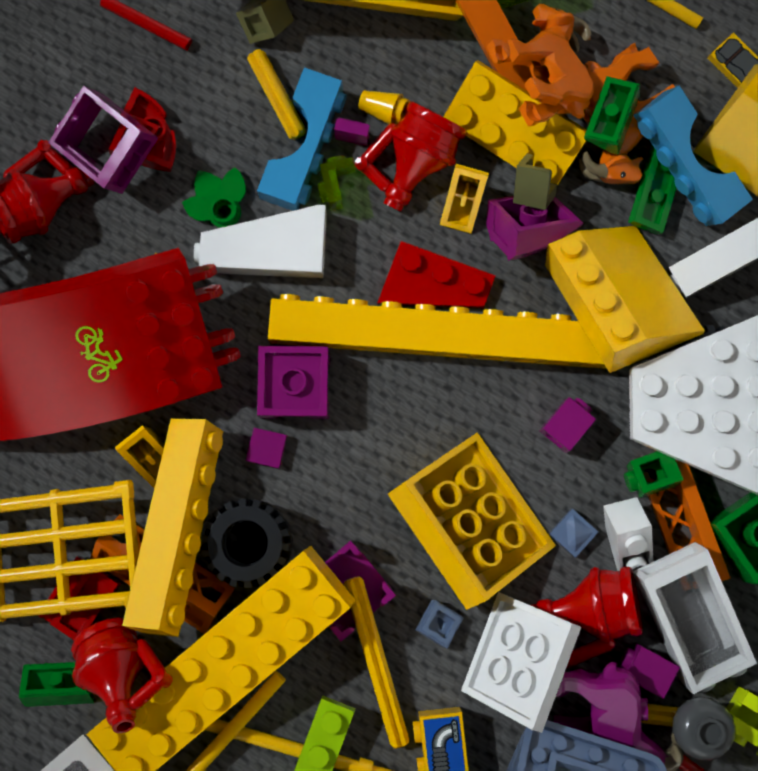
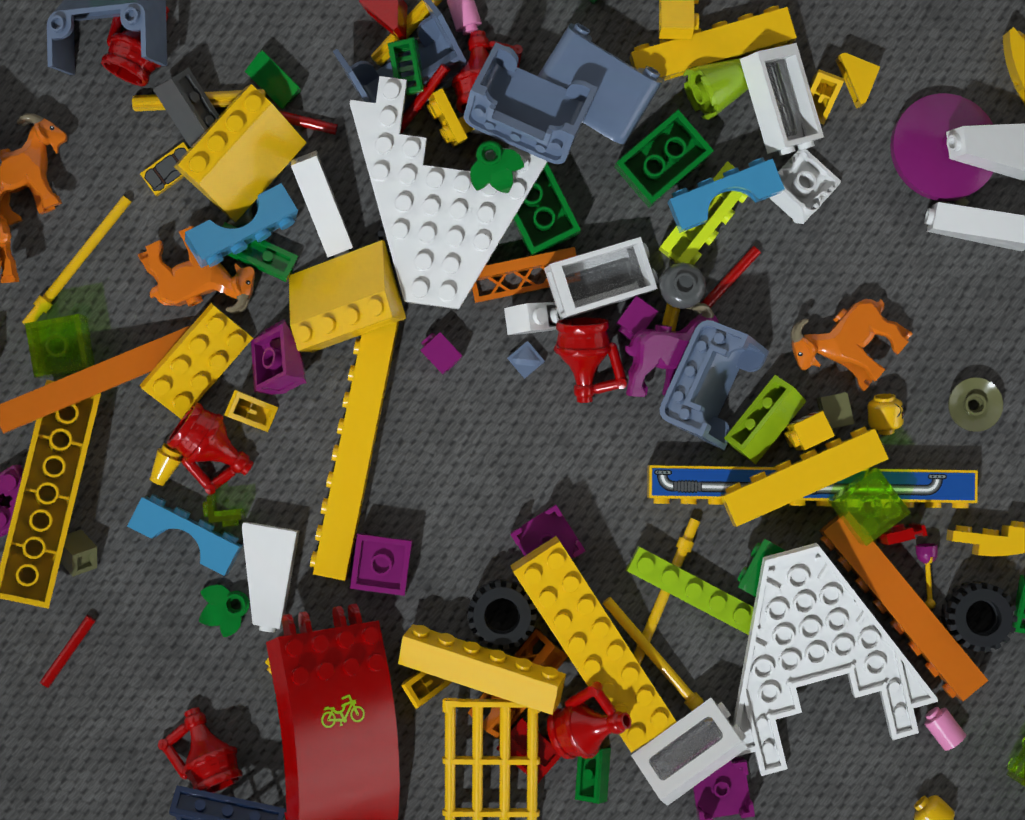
camera: 85 degrees left, 5 degrees up
(127, 155) = (183, 676): magenta window -> none
(151, 116) = (163, 661): red brick -> none
(266, 448) = (430, 591): magenta tile -> none
(276, 94) = (143, 550): yellow axle -> none
(352, 131) = (183, 493): magenta tile -> none
(377, 664) = (606, 525): yellow axle -> none
(434, 280) = (313, 442): red wing -> none
(439, 623) = (582, 473): sand blue tile -> none
(472, 521) = (506, 437): yellow slope -> none
(521, 661) = (615, 416): white plate -> none
(533, 185) = (248, 356): olive panel -> none
(556, 71) = (152, 326): orange animal -> none
(613, 114) = (199, 284): green slope -> none
(662, 466) = (481, 287): green brick -> none

